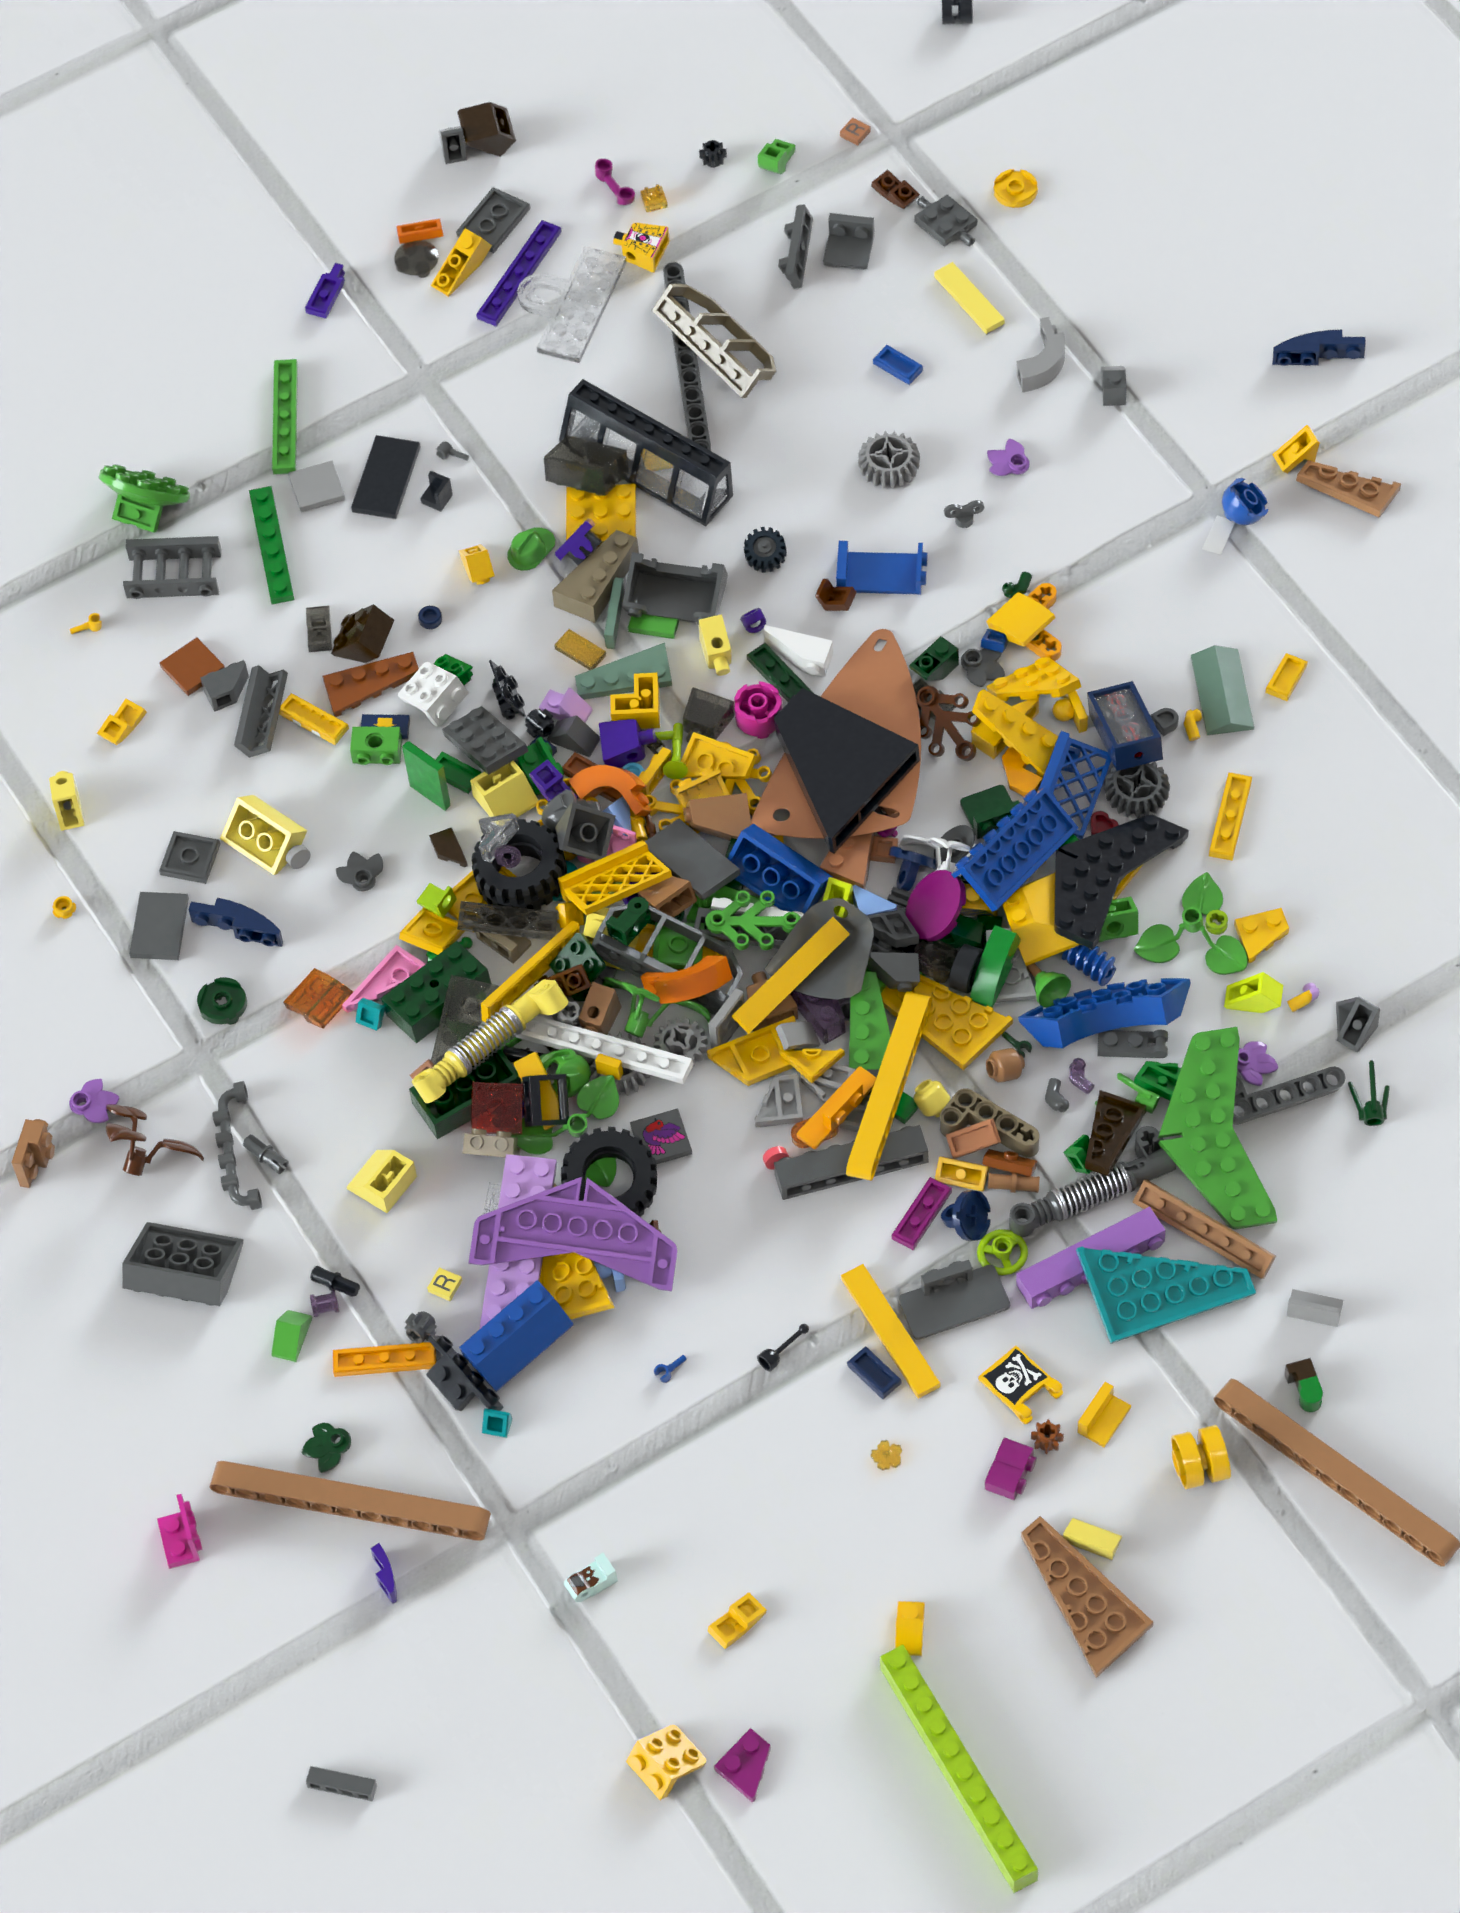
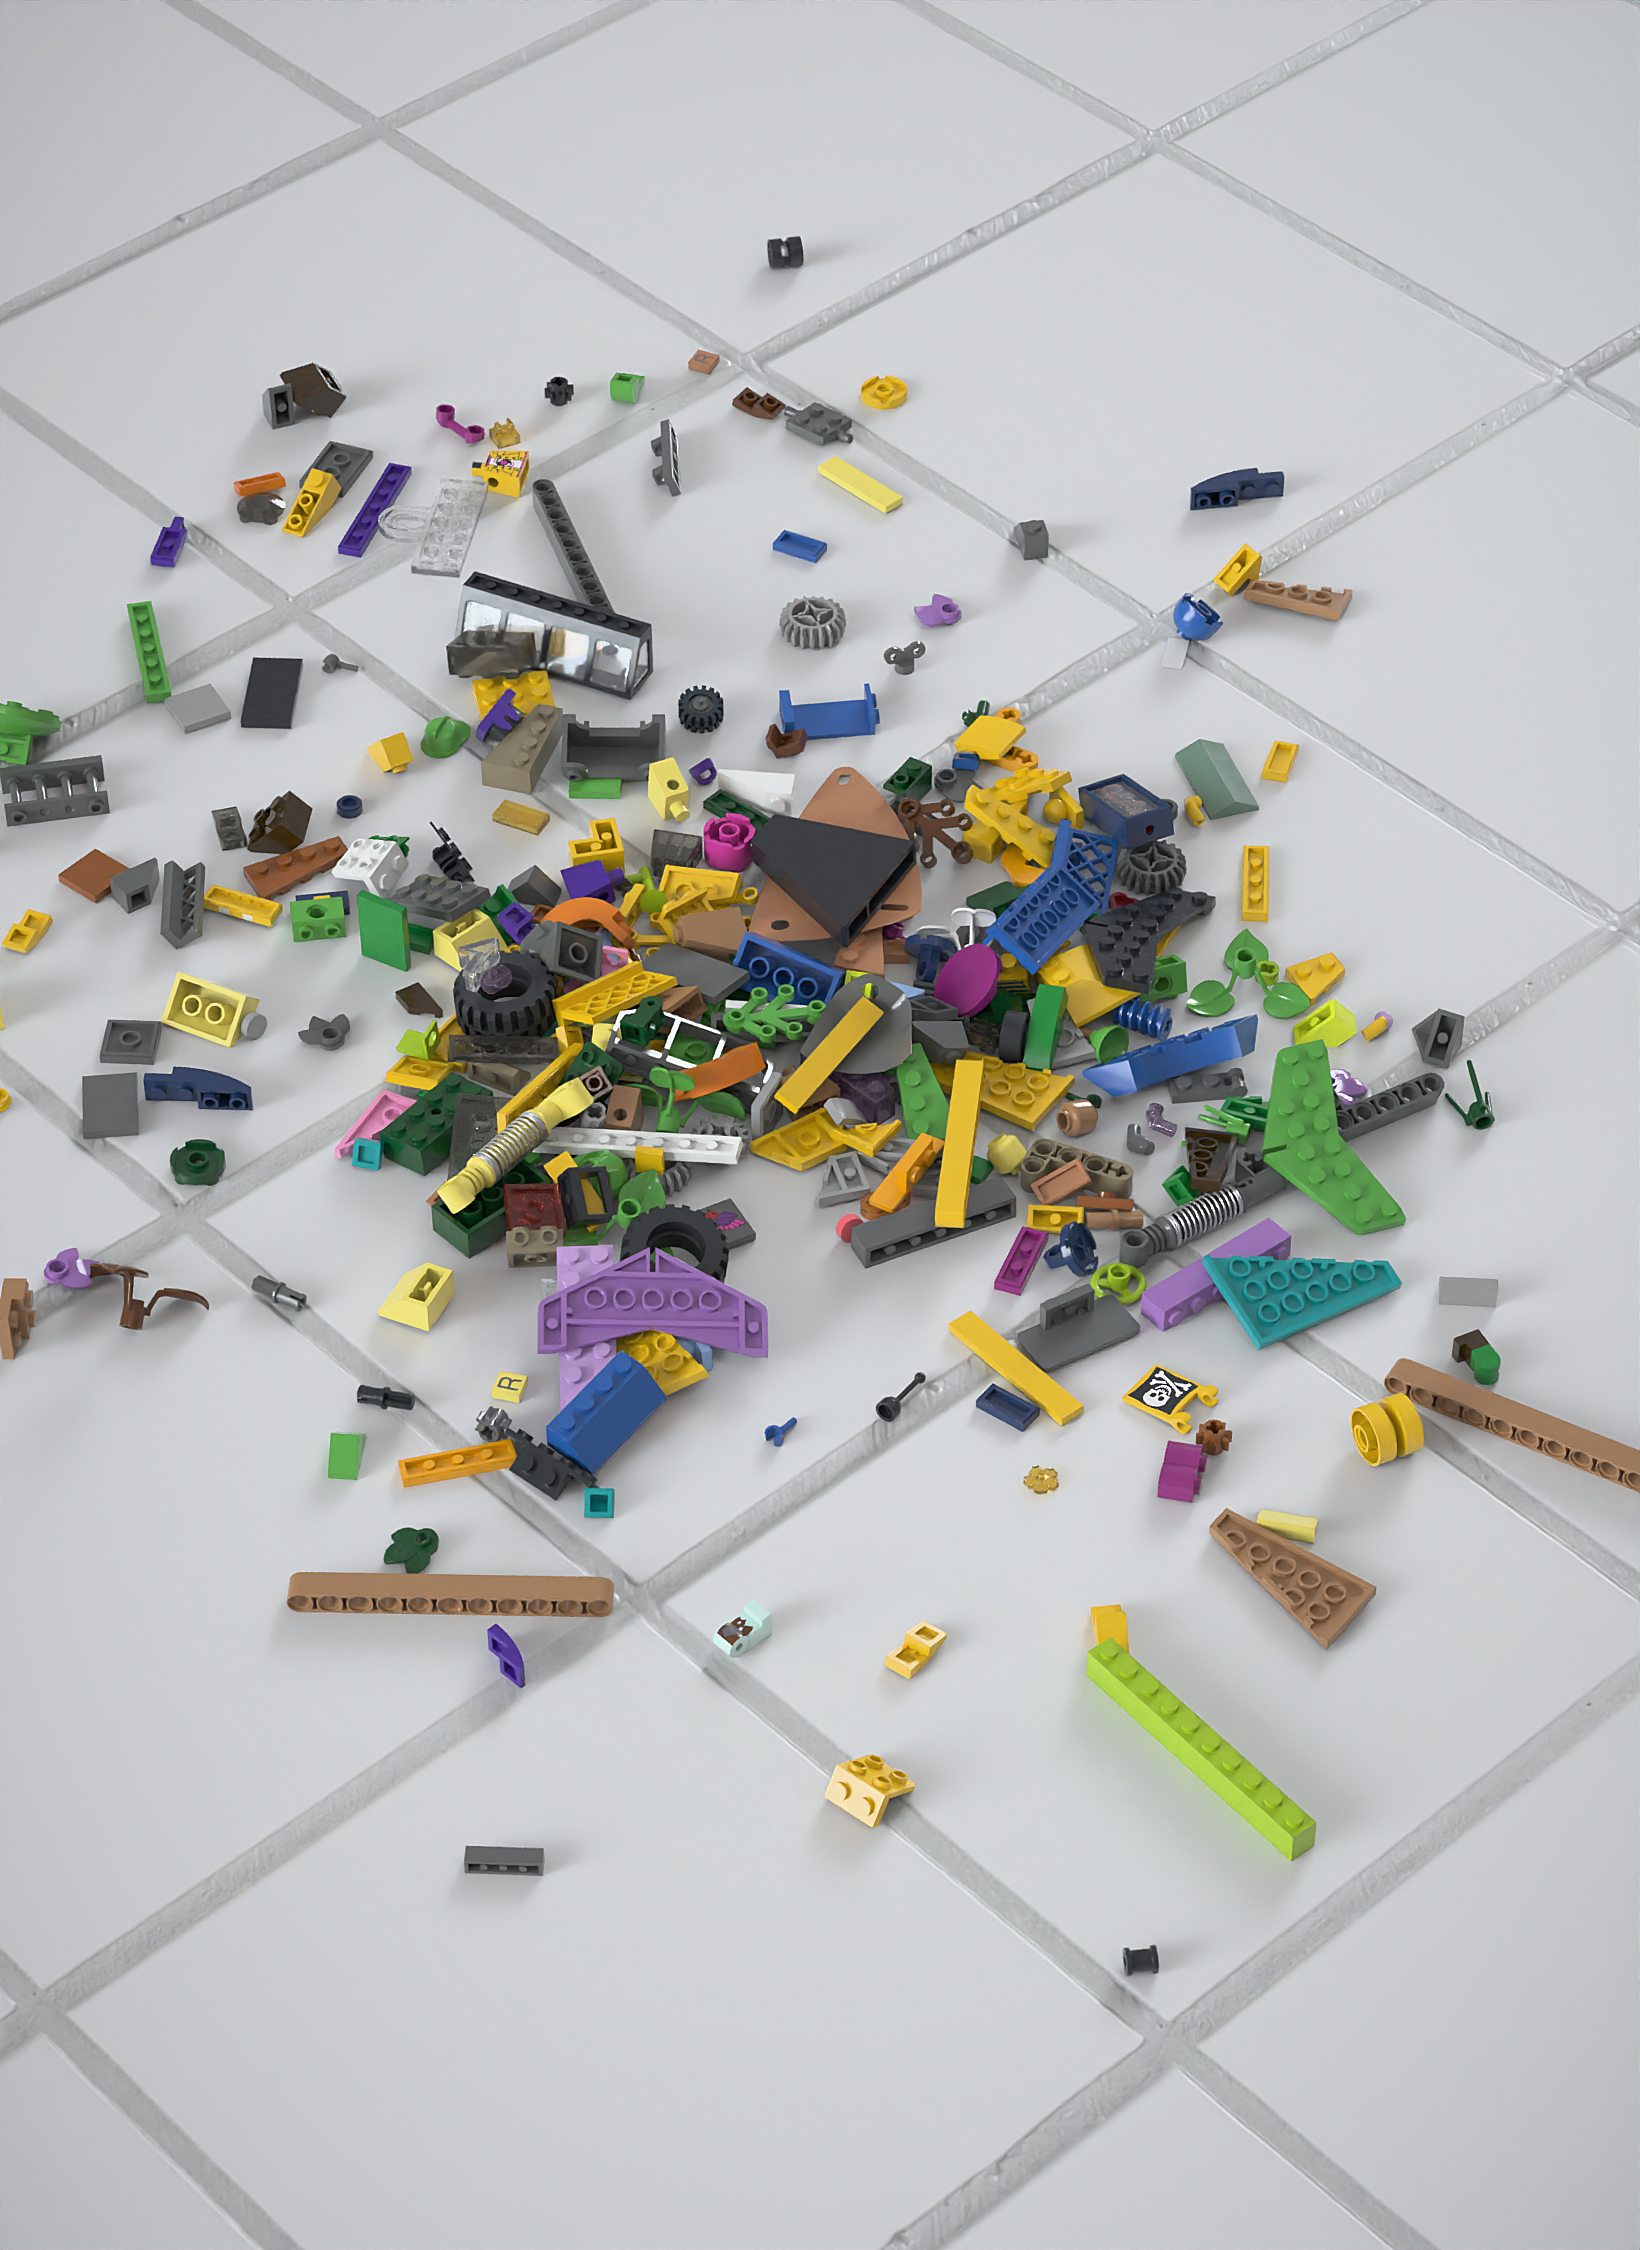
camera: 15 degrees left, 15 degrees down
(180, 1536) = (264, 1651): dark pink bracket -> none
(181, 1264) = (206, 1404): dark grey slope -> none
(225, 1140) = (237, 1303): dark grey bar -> none
(271, 545) = (159, 763): green plate -> none
(318, 998) = (305, 1147): clear orange slope -> none
(324, 1303) = (378, 1418): clear purple bush -> none
(438, 491) = (333, 696): black panel -> none
(539, 723) = (493, 877): black gear -> none
(566, 705) = (510, 866): lavender slope -> none
(614, 613) = (551, 779): sand green tile -> none
(619, 675) = (555, 838): sand green wing -> none
(706, 345) = (597, 541): dark tan plate -> none
(745, 1763) = (959, 1781): magenta wing -> none
(849, 241) = (722, 446): dark grey bracket -> none
(1044, 367) = (956, 530): light grey arch -> none
(1103, 1416) = (1267, 1413): yellow panel -> none
(1204, 1229) = (1333, 1234): medium nougat plate -> none

